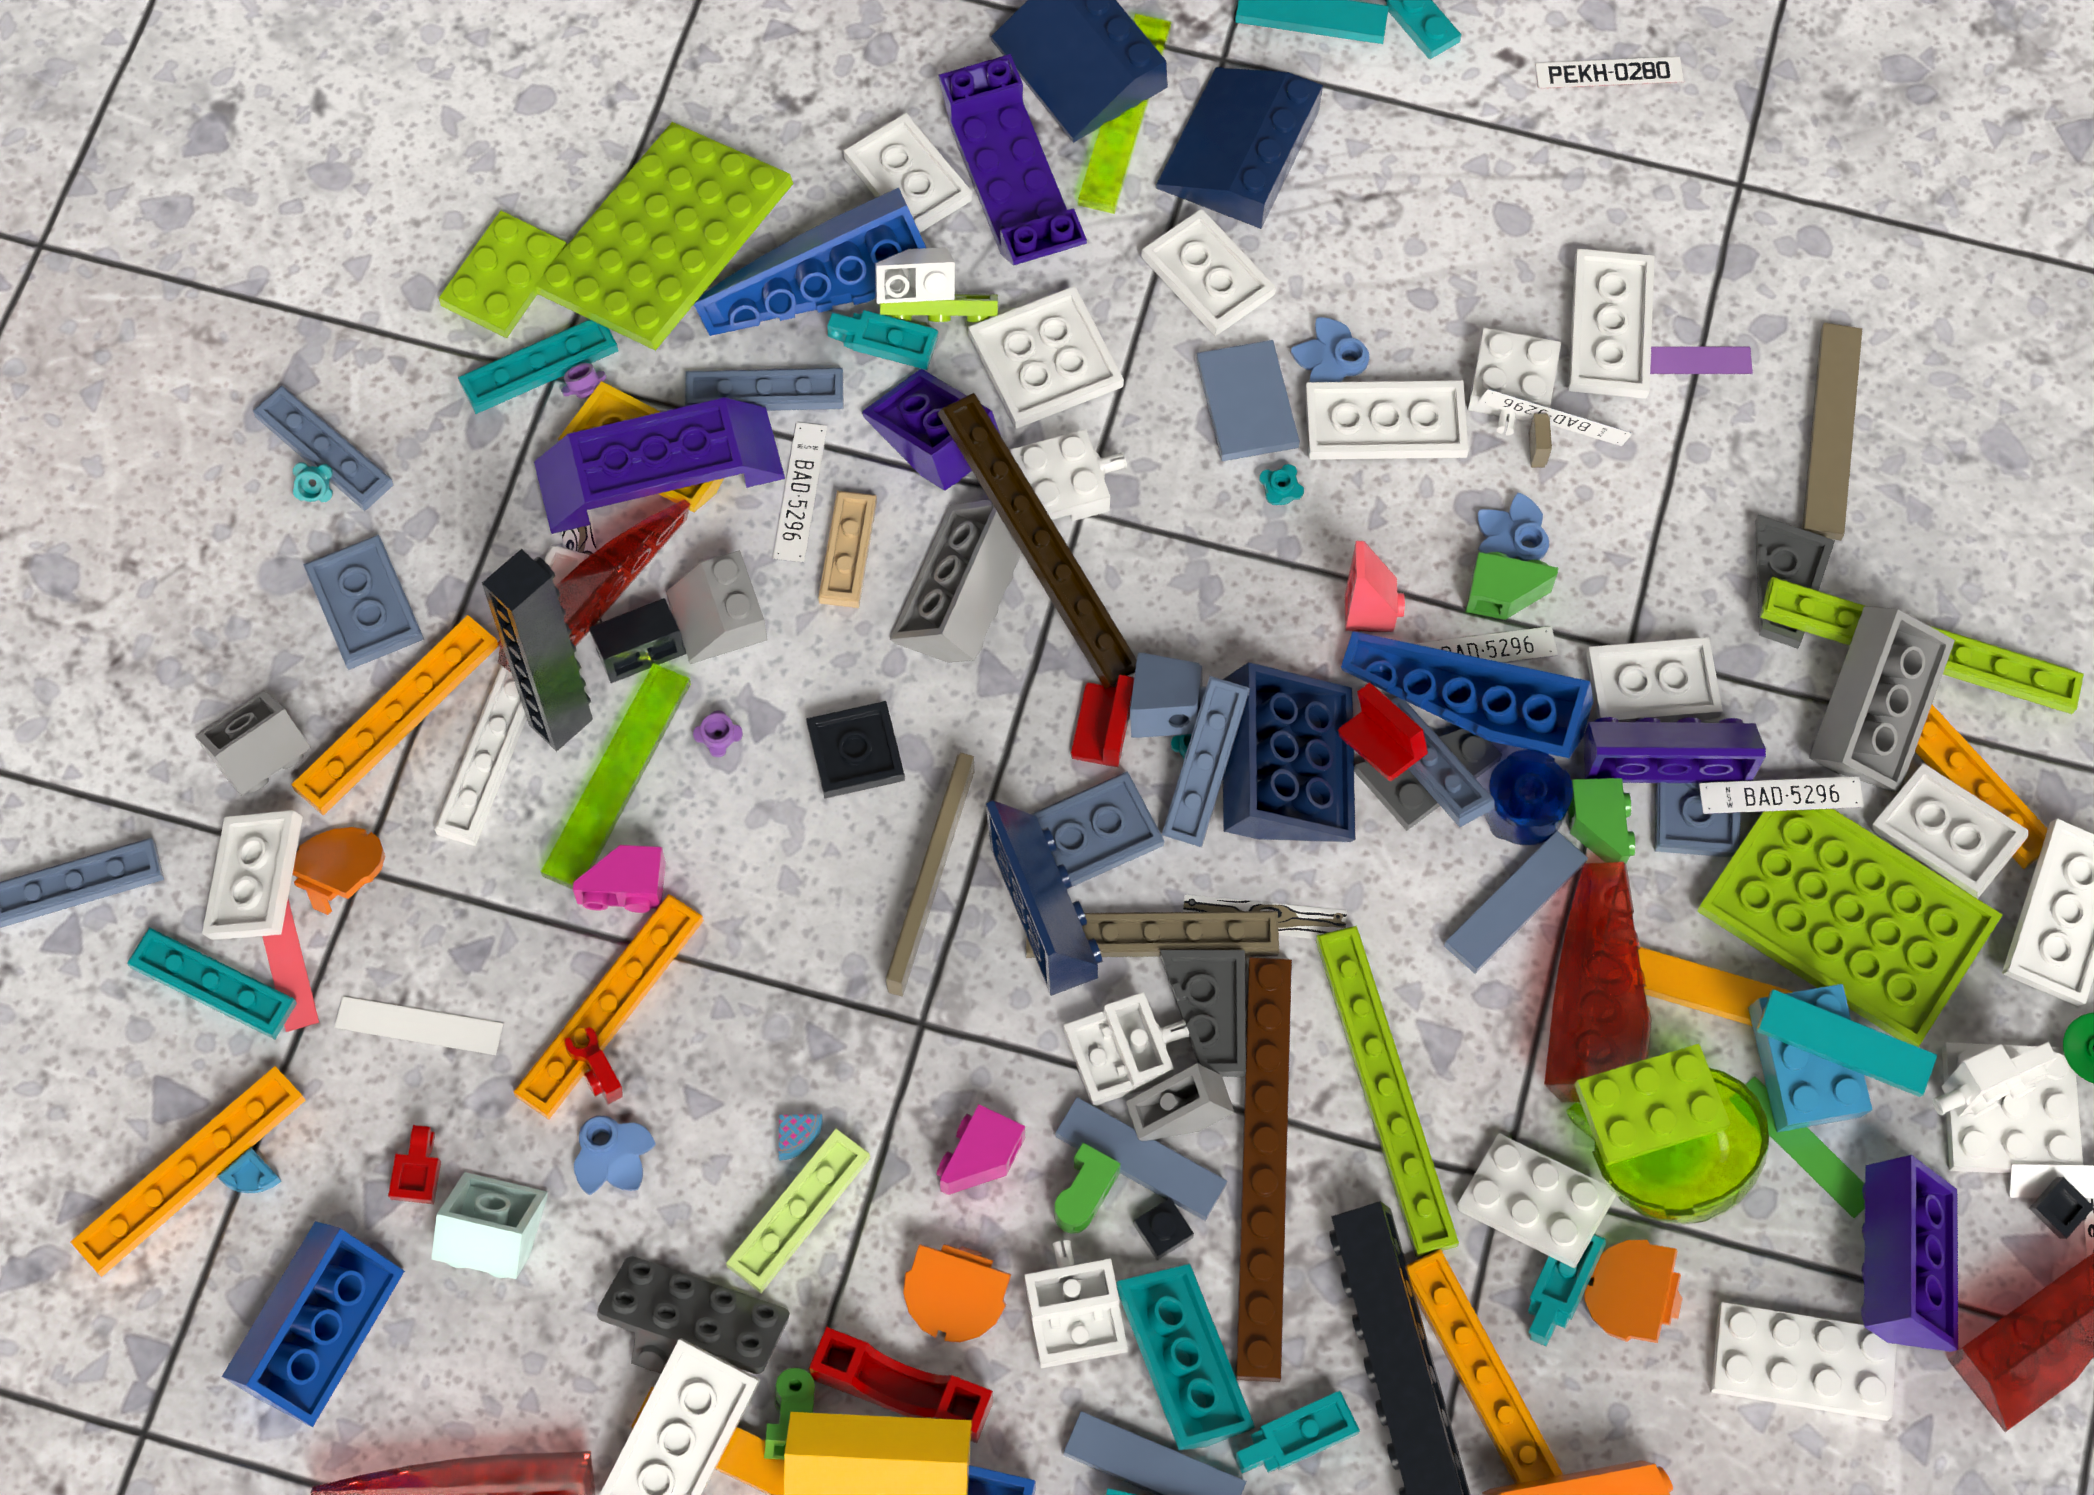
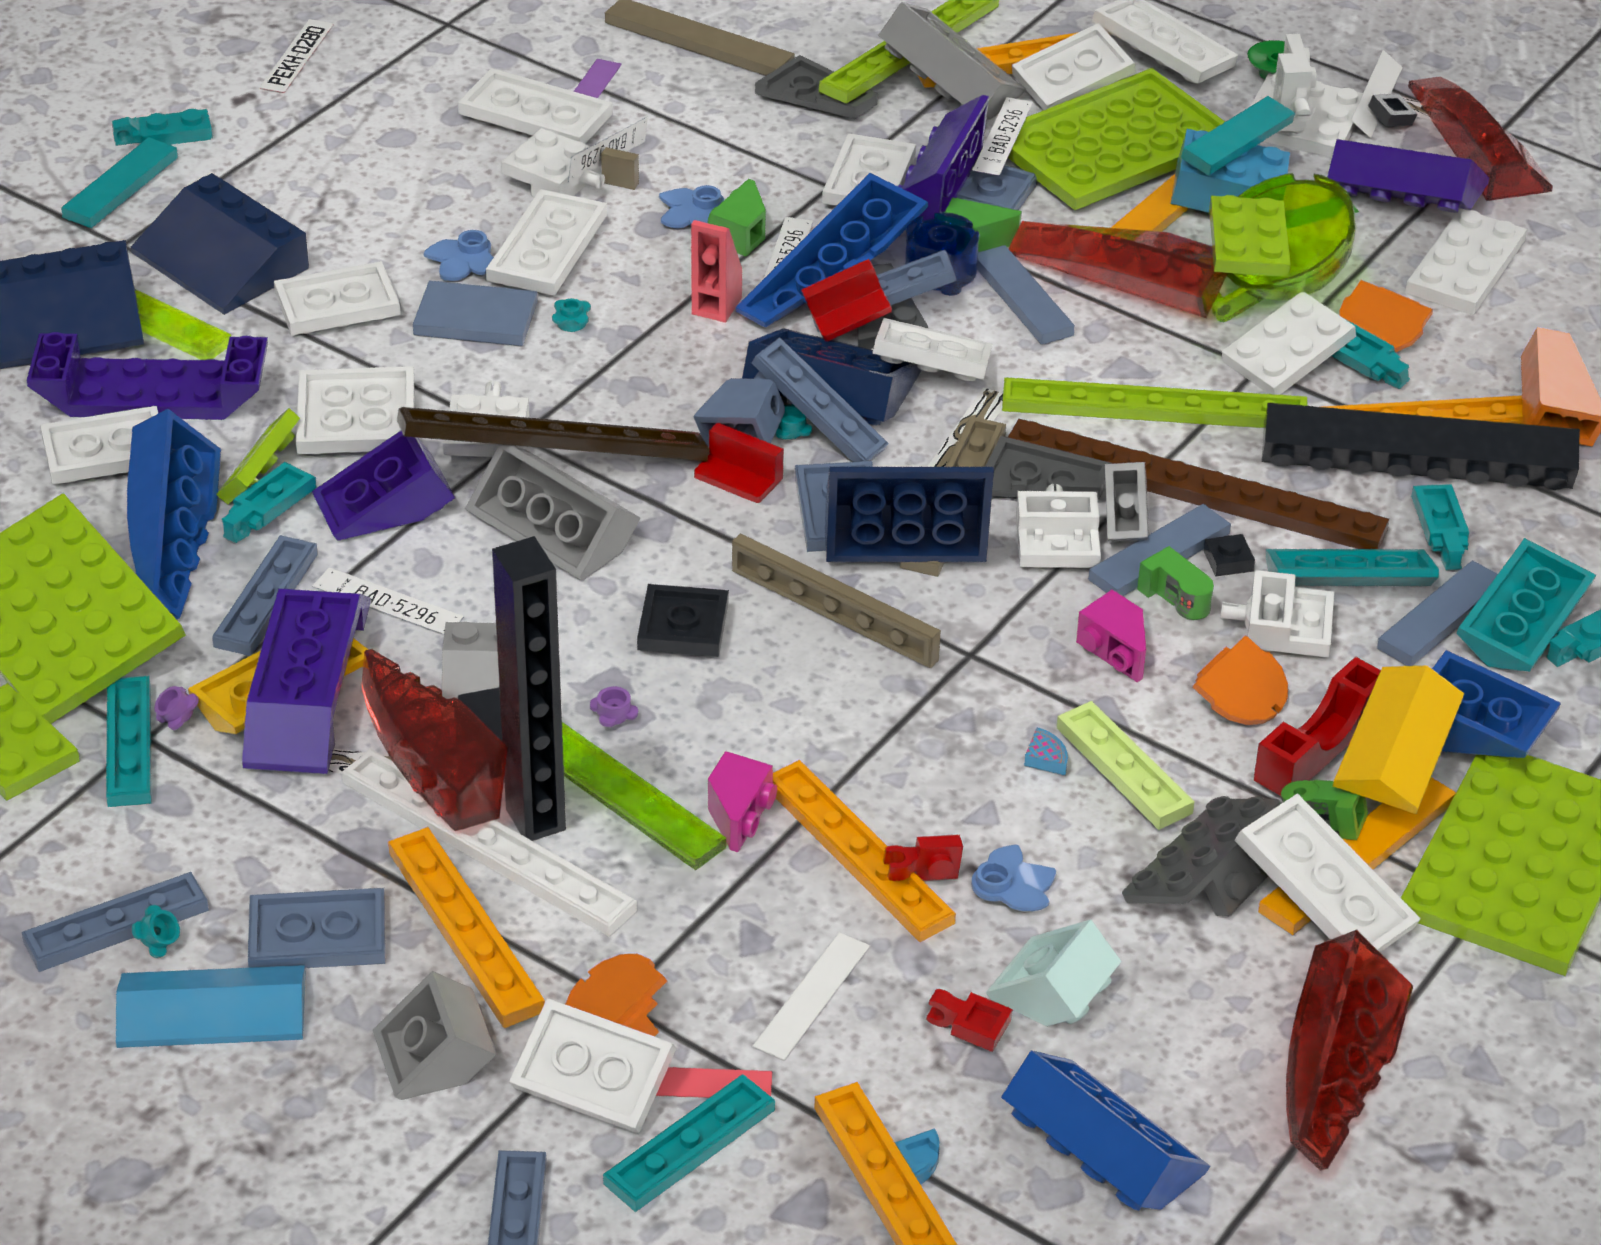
camera: 70 degrees left, 25 degrees down
(253, 557) = (210, 1006): none -> dark azure slope
(847, 549) = (454, 577): tan tile -> none
(916, 276) = (233, 441): white slope -> none
(1354, 841) = (932, 349): none -> white plate

